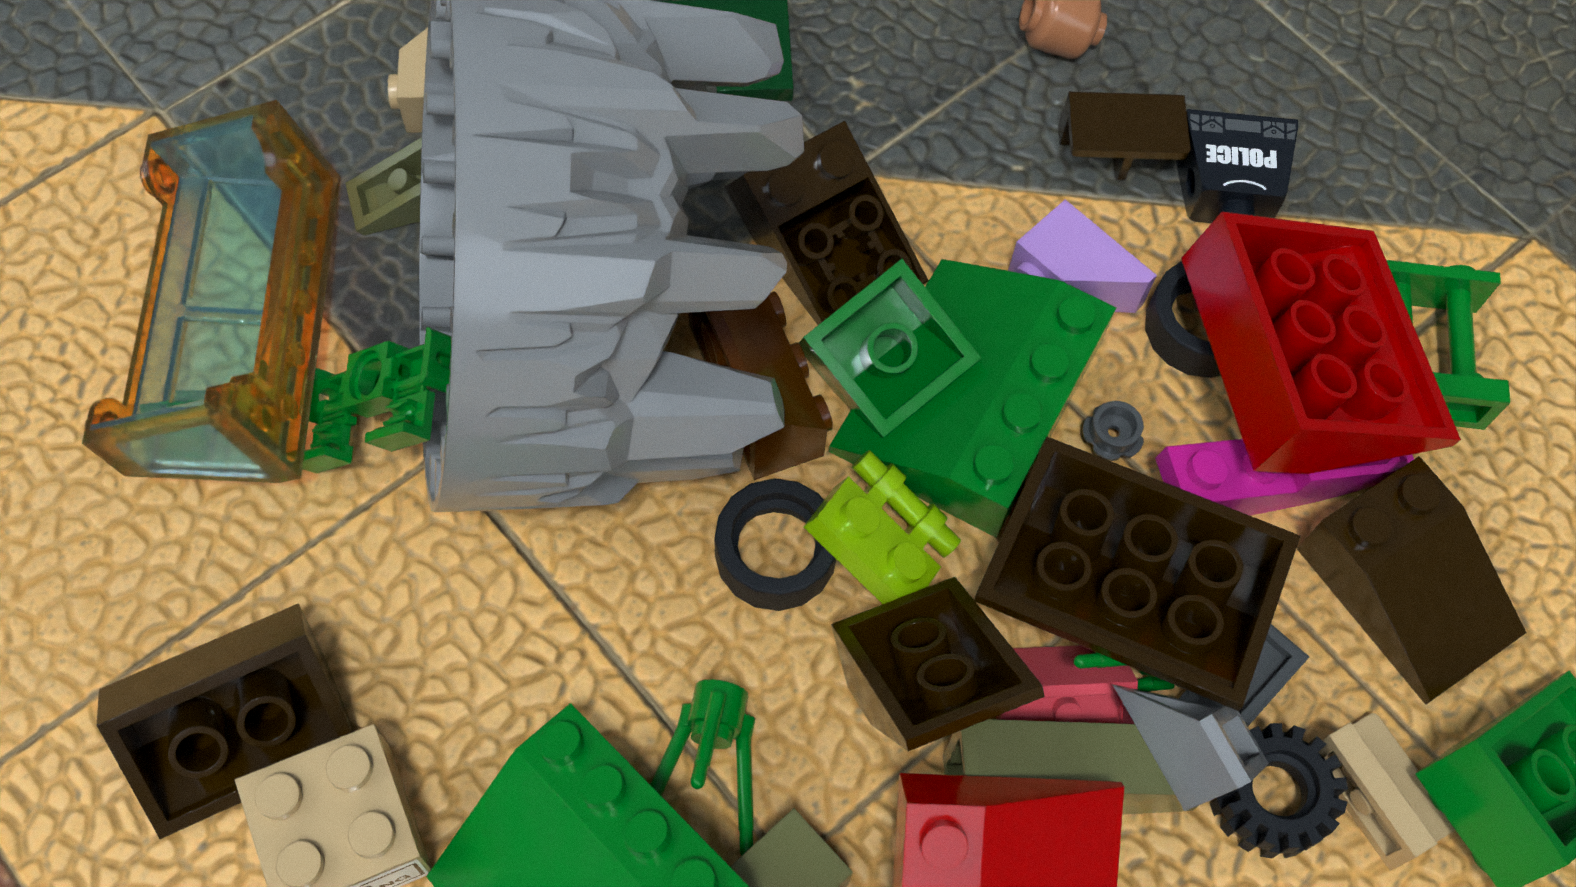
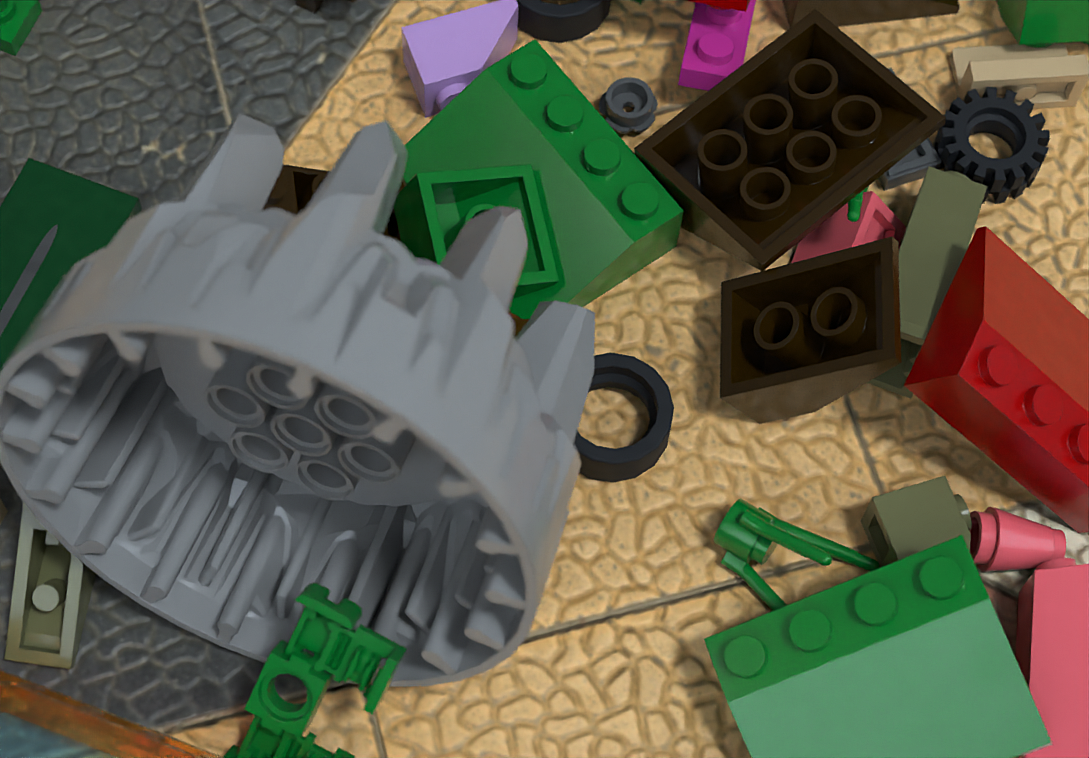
camera: 65 degrees left, 0 degrees up
(871, 542) = (657, 333): lime plate -> none
(1196, 745) = (956, 171): light grey slope -> none

